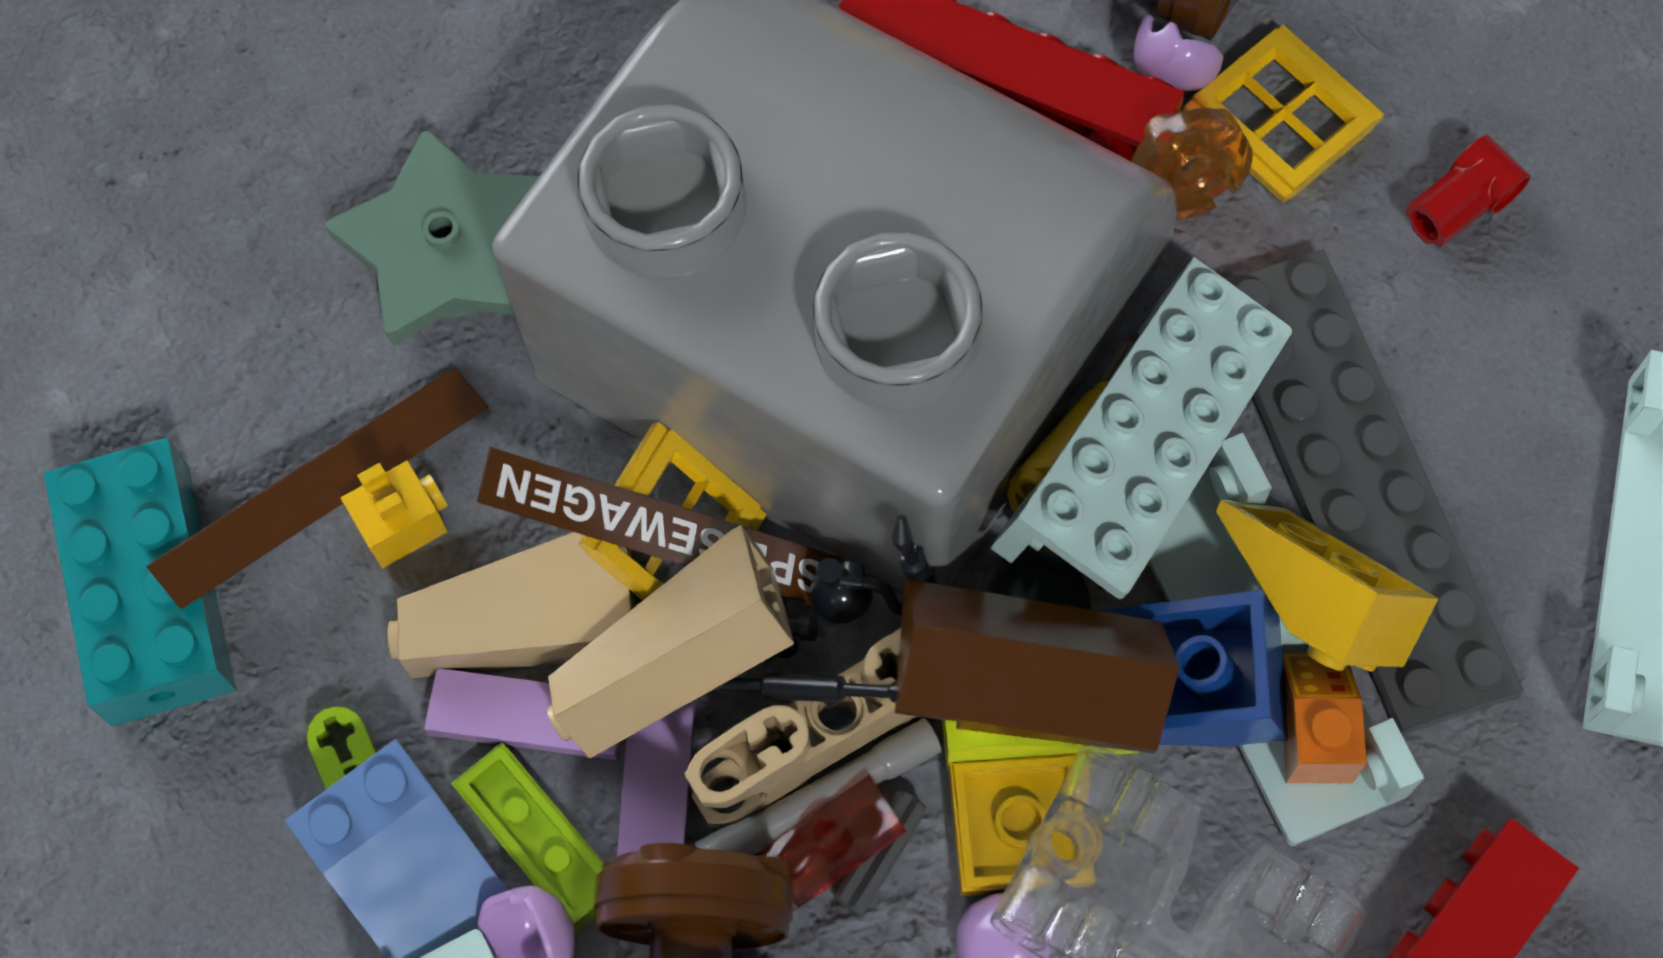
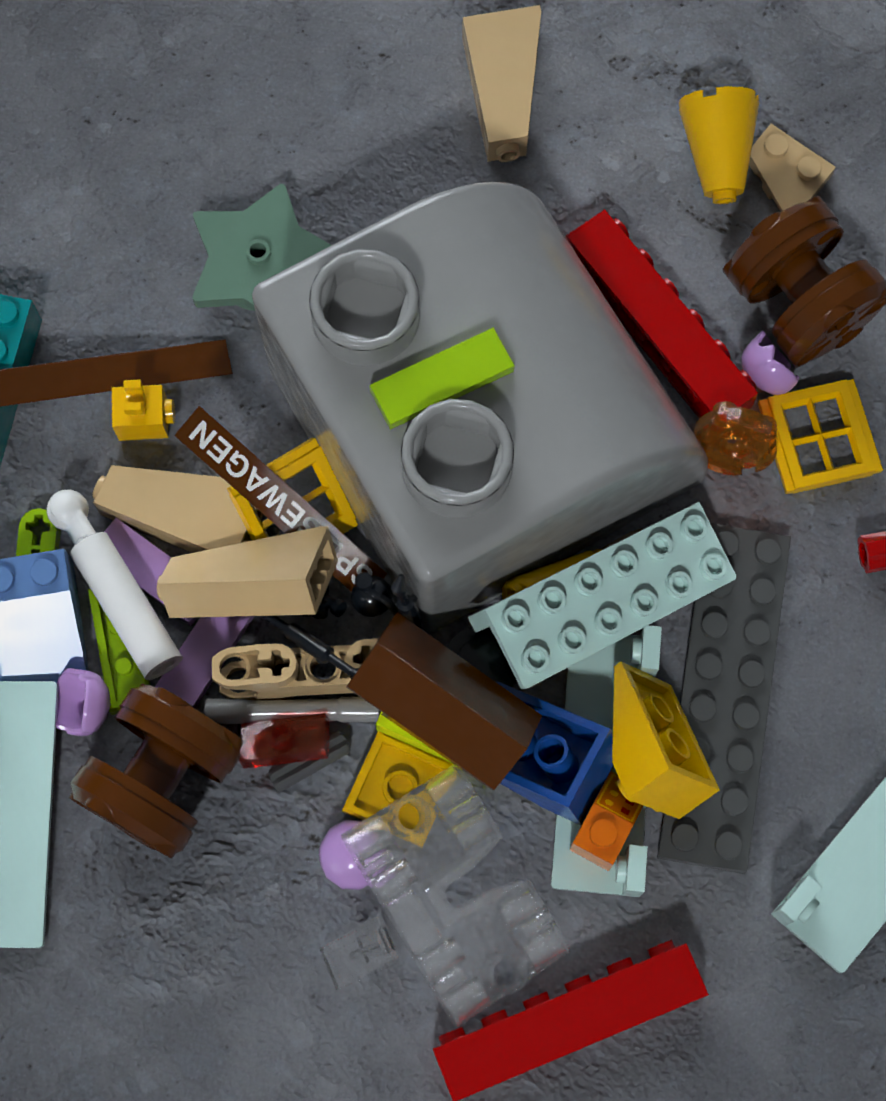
camera: 25 degrees right, 5 degrees up
(489, 756) = (114, 587): none -> white piece
(813, 231) = (442, 377): none -> lime tile

